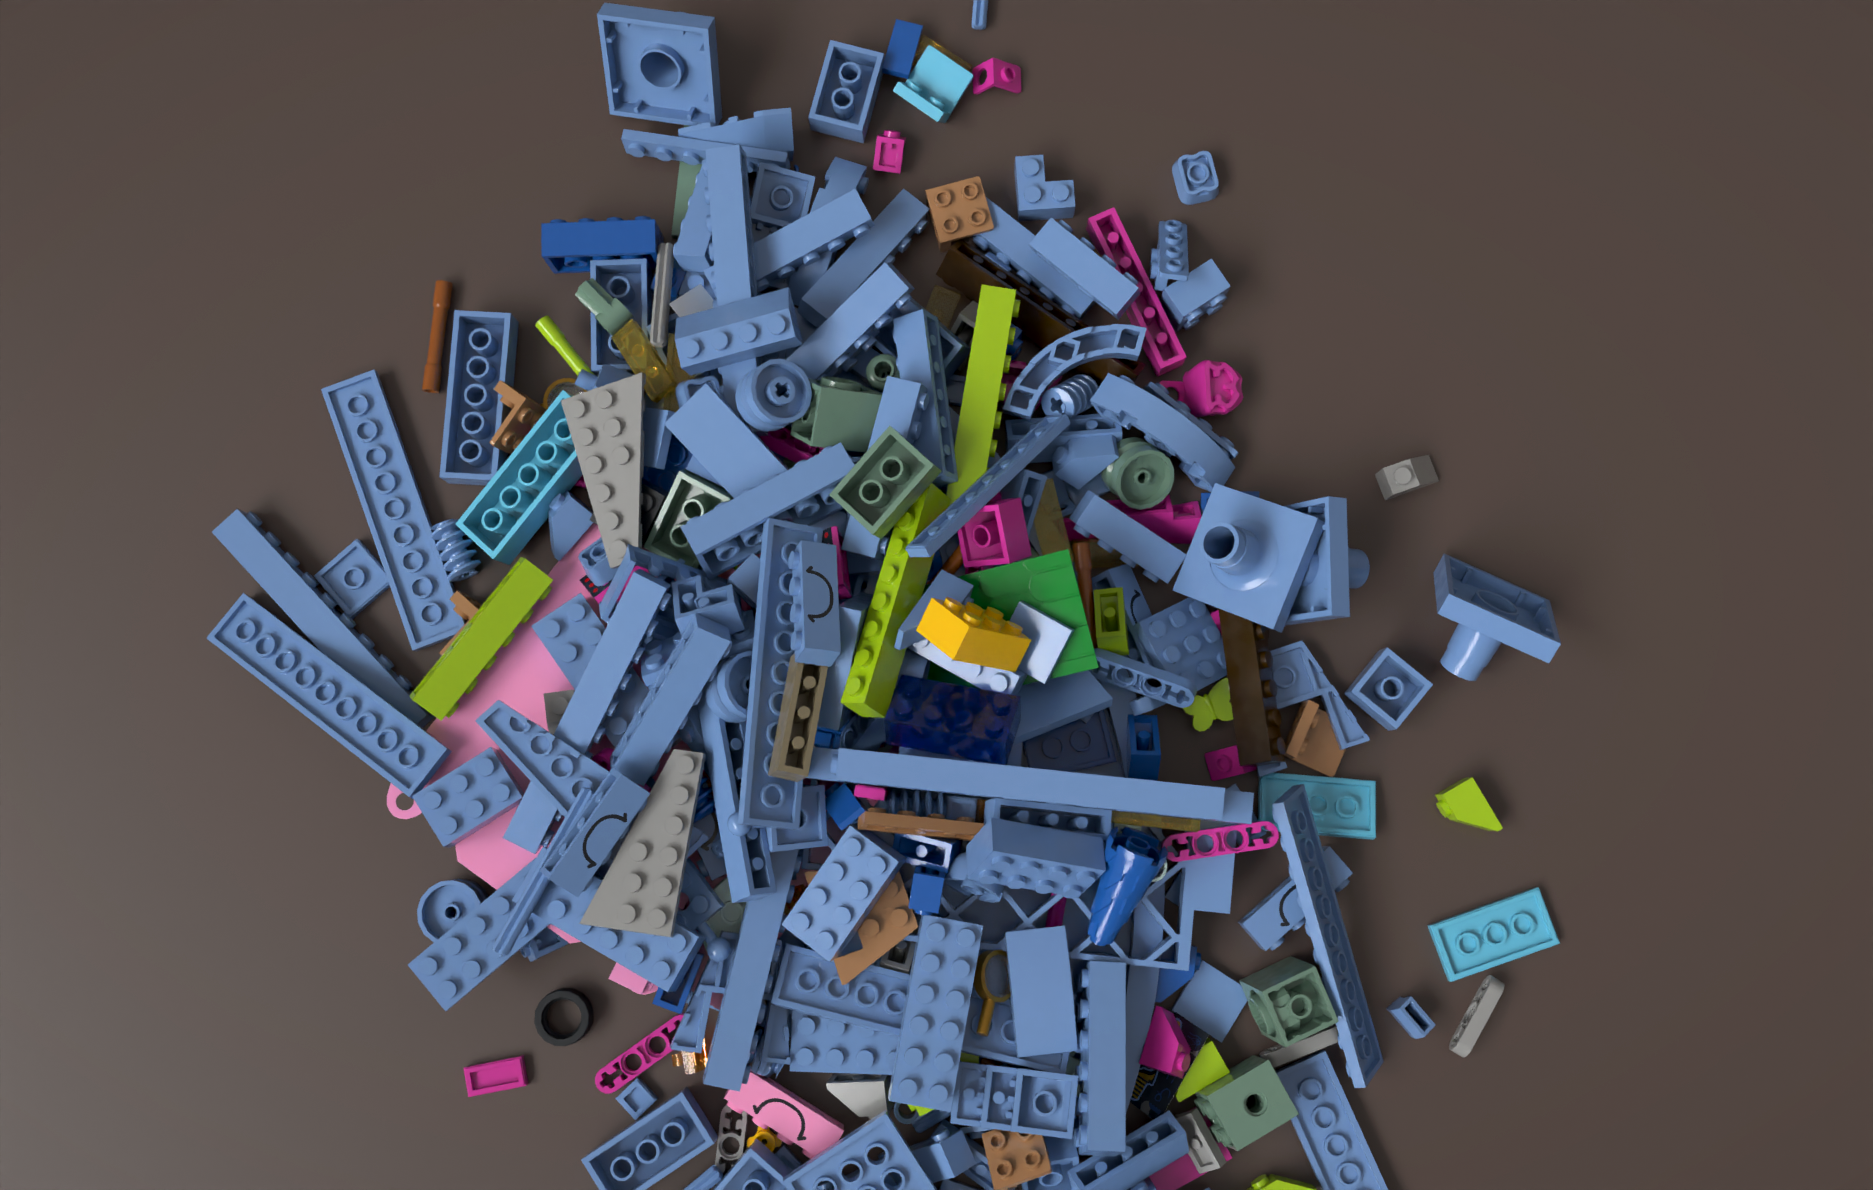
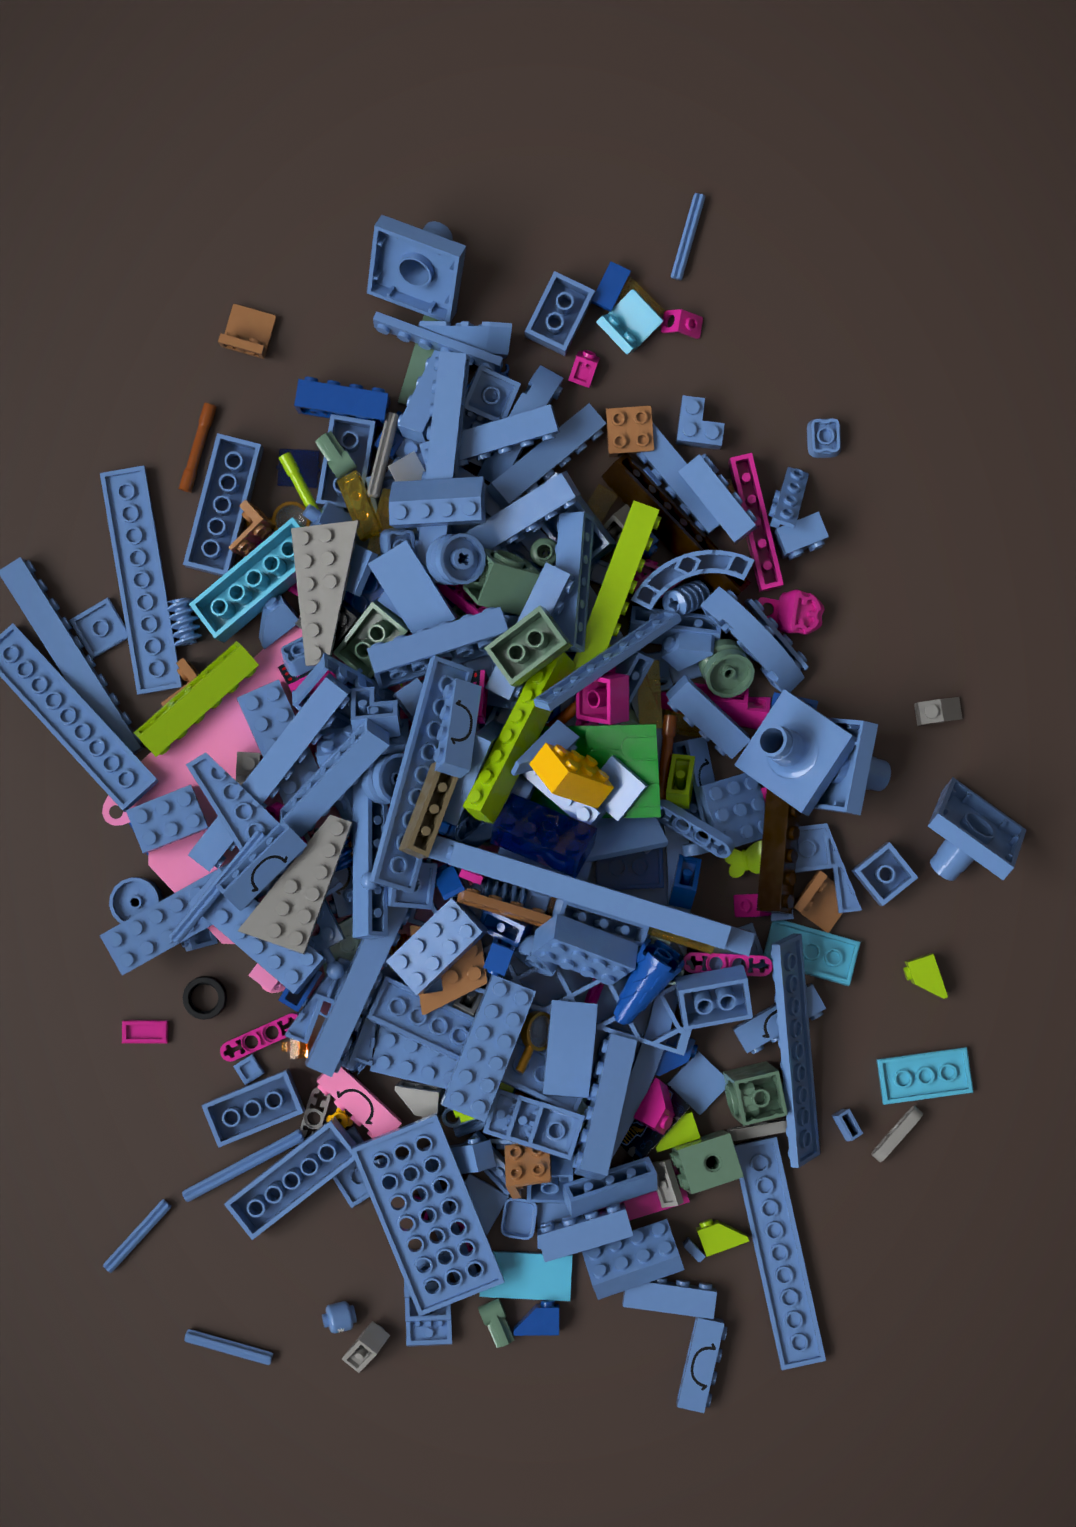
camera: 10 degrees right, 5 degrees up
(474, 187) = (248, 331): none -> medium nougat bracket
(577, 333) = (308, 464): none -> clear blue piece
(1213, 887) = (714, 997): none -> medium blue brick

